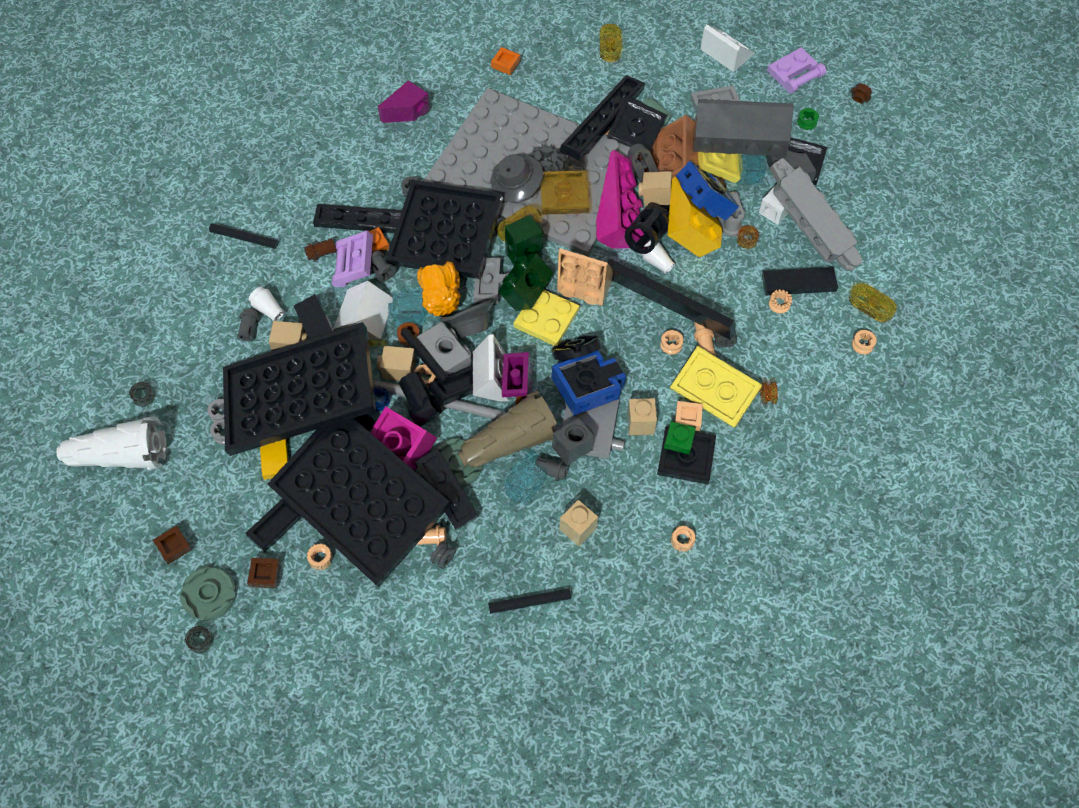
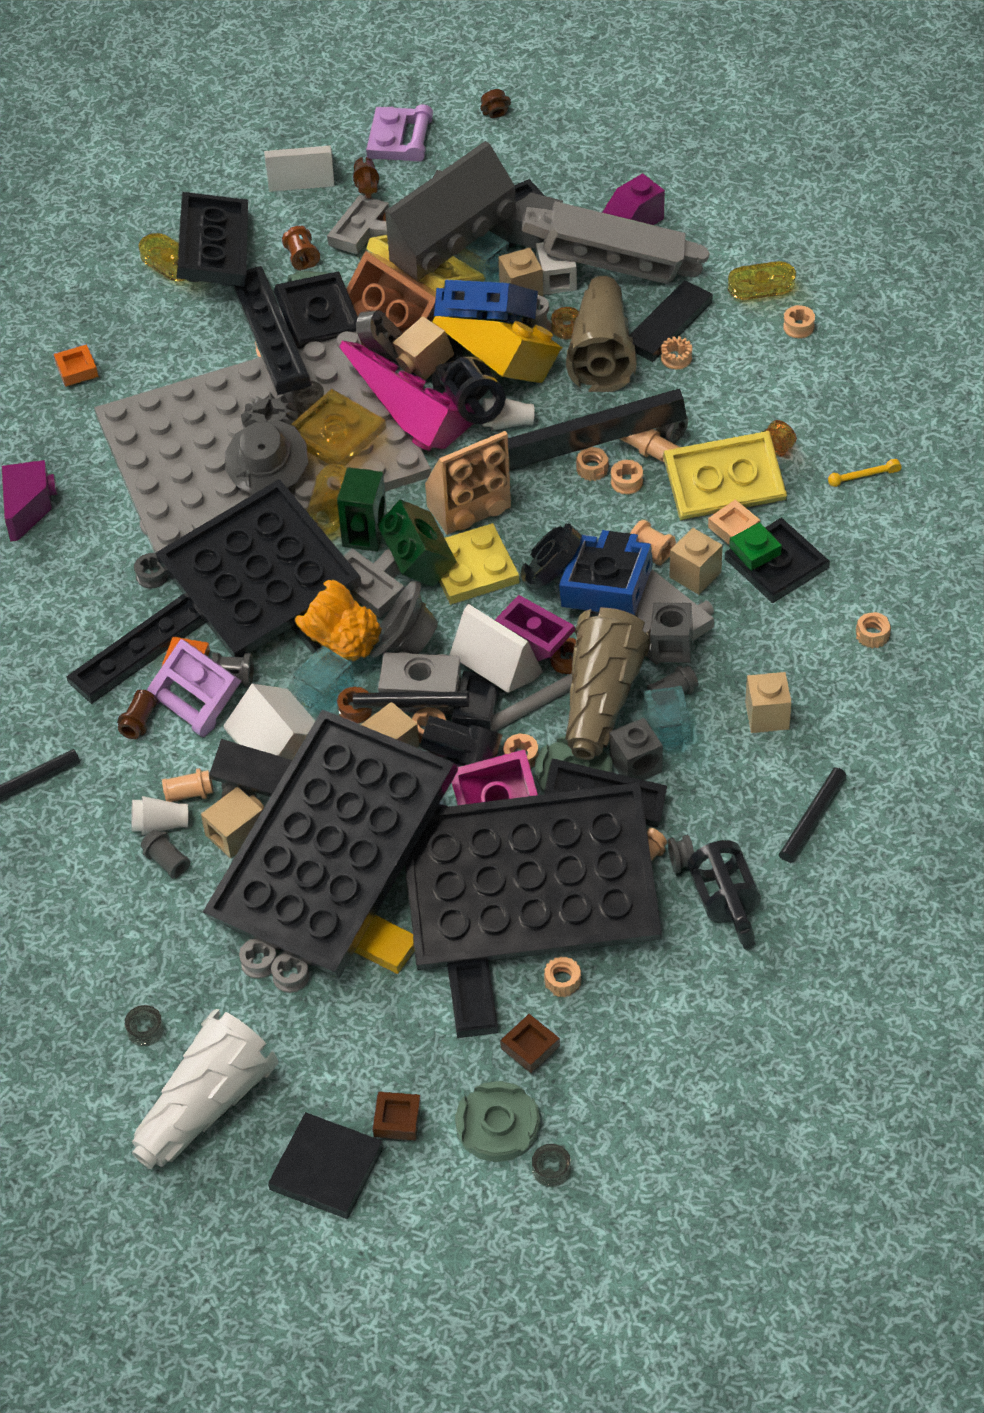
camera: 45 degrees left, 10 degrees down
(122, 535) = (326, 1165): none -> black tile
(290, 299) = (188, 786): none -> light nougat pin
(431, 607) = (732, 901): none -> black piece
(442, 423) = (522, 742): none -> light nougat bush
(487, 483) = (636, 750): none -> dark grey brick
(635, 50) = (212, 239): none -> black plate
(636, 385) = (659, 542): none -> light nougat bush
(662, 313) = (592, 472): none -> light nougat axle
(673, 89) = (300, 248): none -> dark orange bush
(746, 79) = (366, 177): none -> reddish brown axle
(747, 259) = (600, 342): none -> dark tan cone
(753, 192) = (522, 270): none -> tan brick
(771, 442) = (891, 466): none -> yellow hinge
(855, 206) = (638, 201): none -> magenta slope

